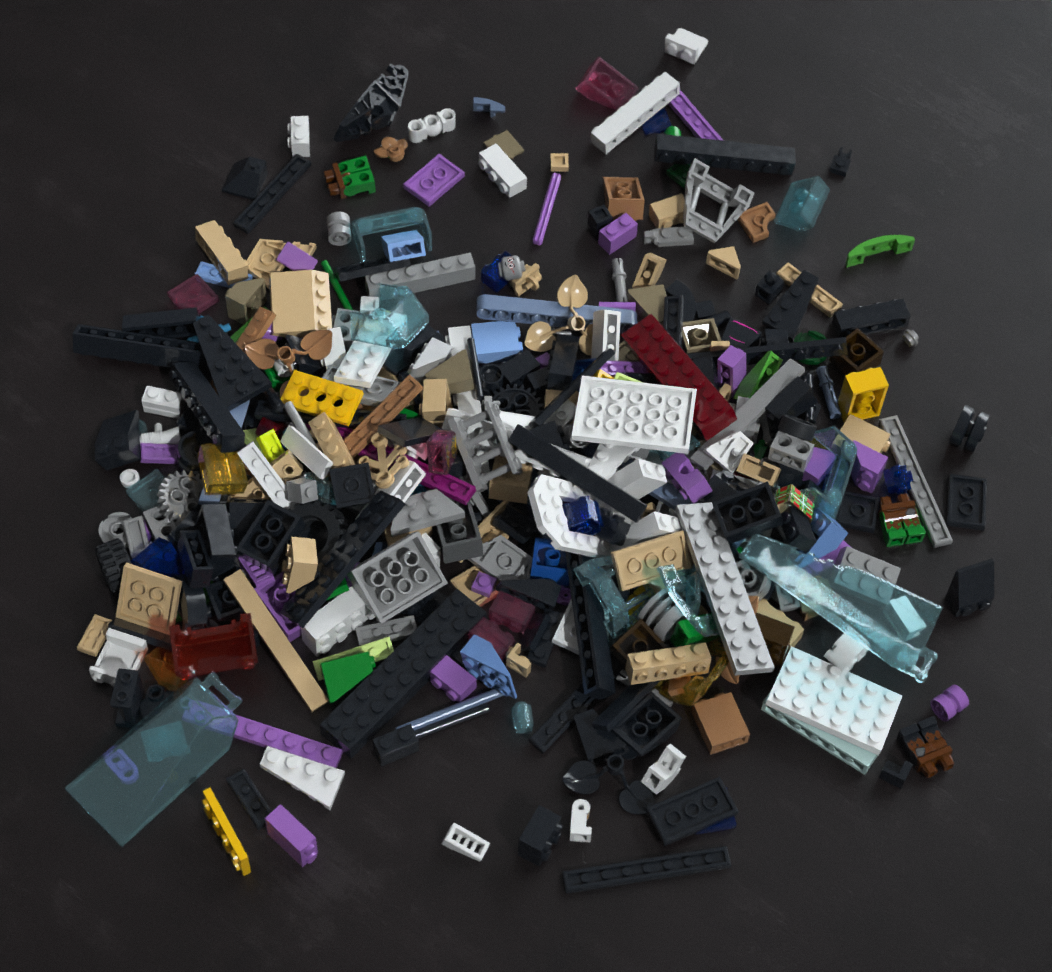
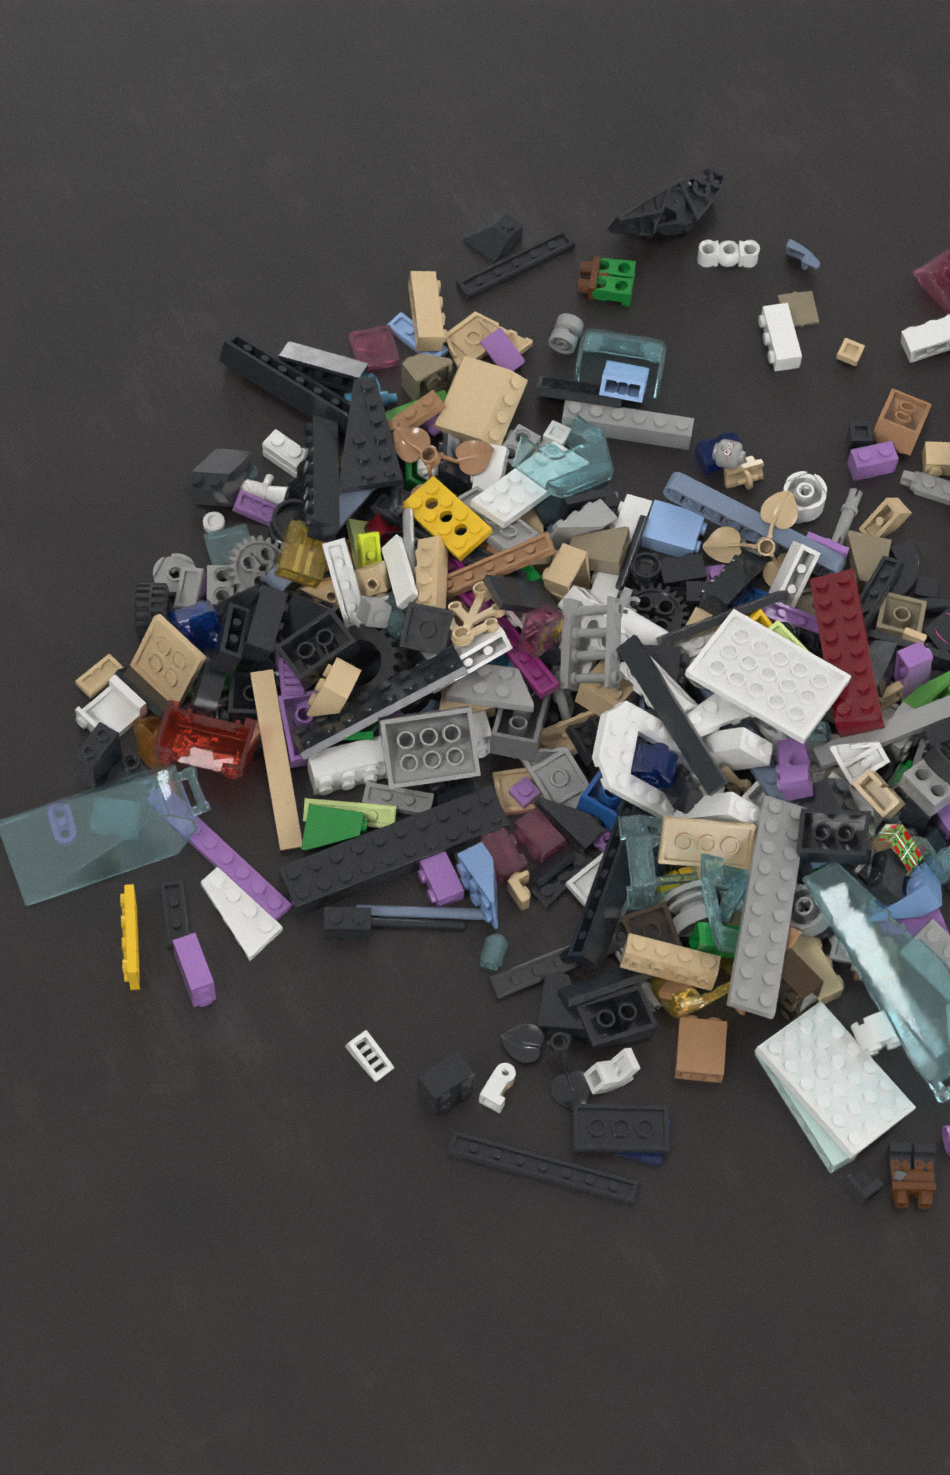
camera: 25 degrees right, 5 degrees up
(300, 136) = (576, 210): white brick -> none
(339, 291) = (533, 399): green bar -> none
(392, 149) = (671, 263): medium nougat plate -> none
(433, 180) = (700, 317): medium lavender tile -> none
(546, 209) = (809, 400): medium lavender axle -> none
(586, 271) = (808, 493): none -> white brick

